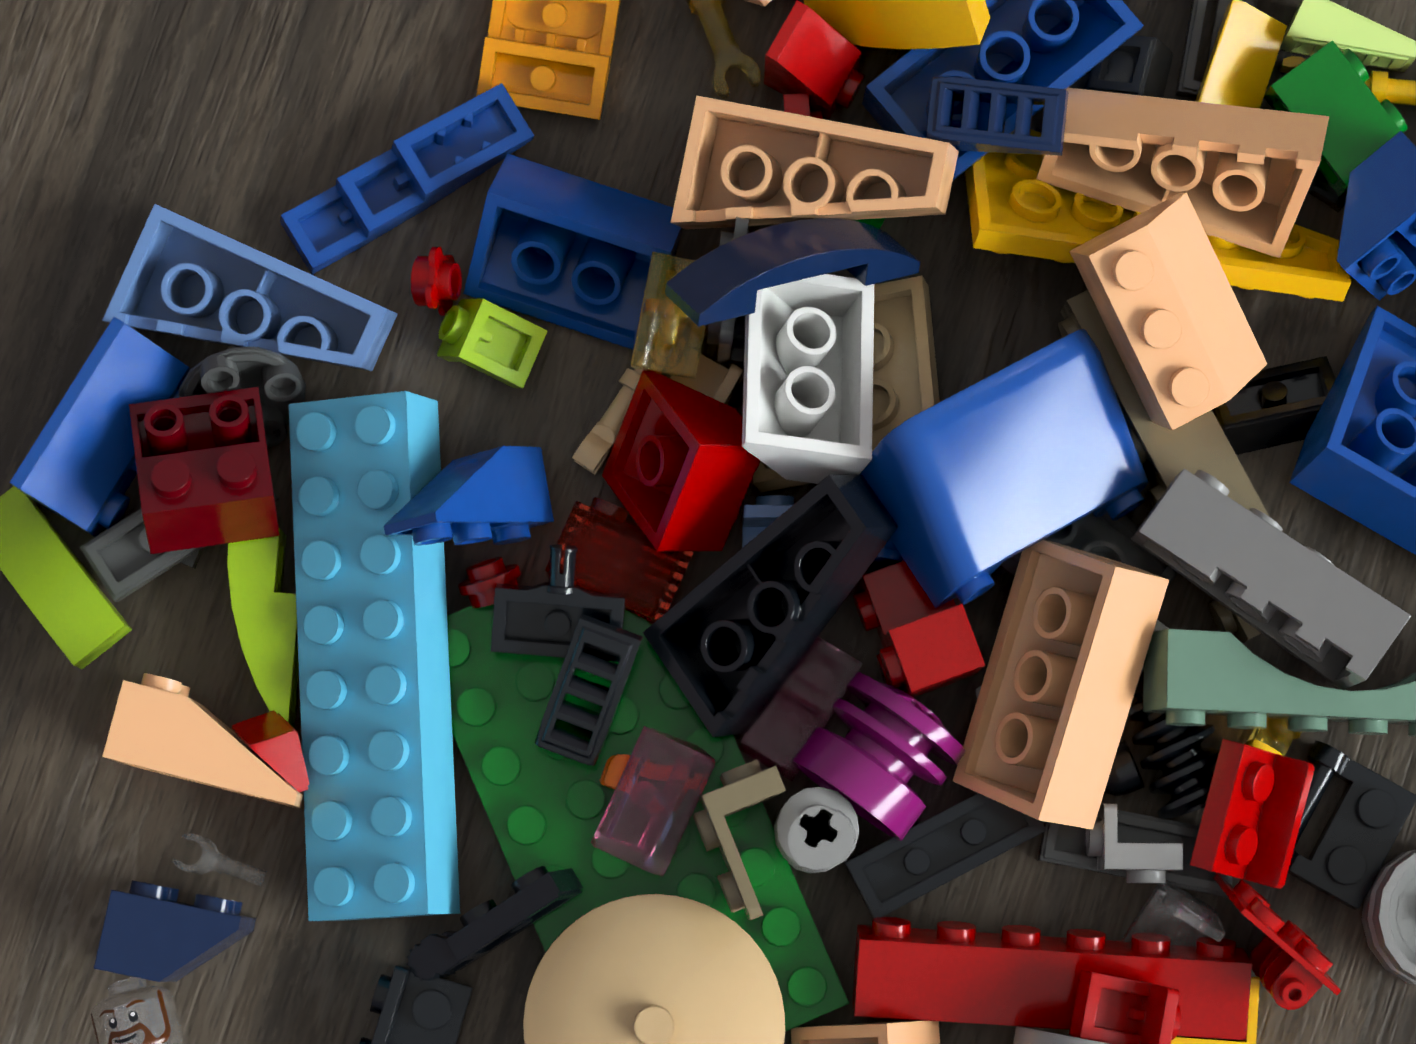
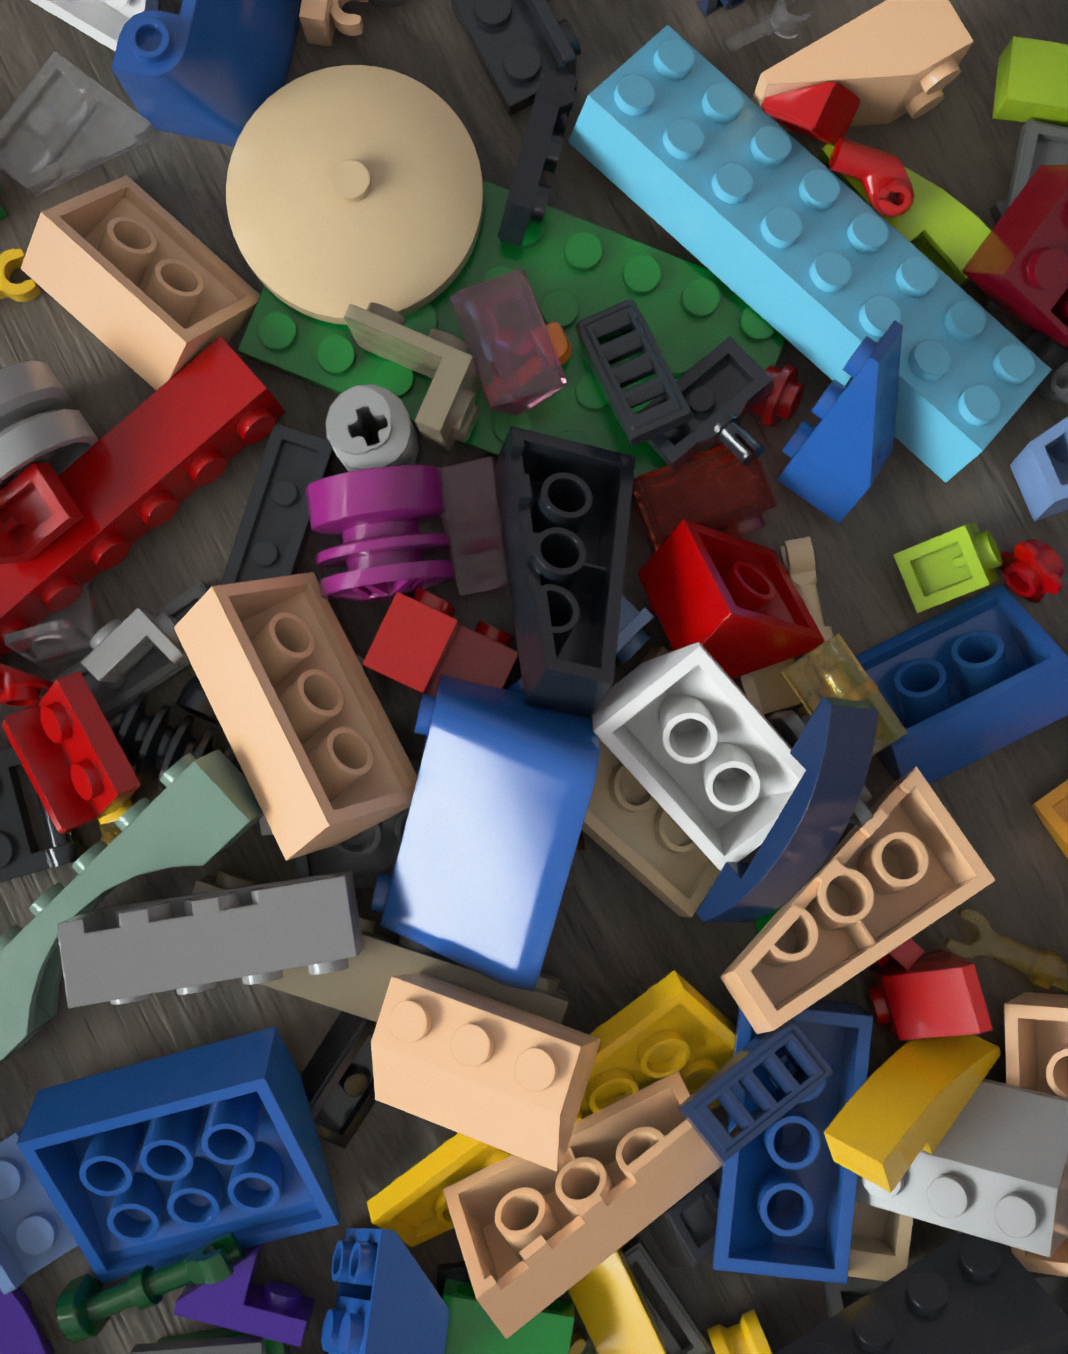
camera: 140 degrees right, 5 degrees up
(270, 660) = (879, 174): none -> red arm

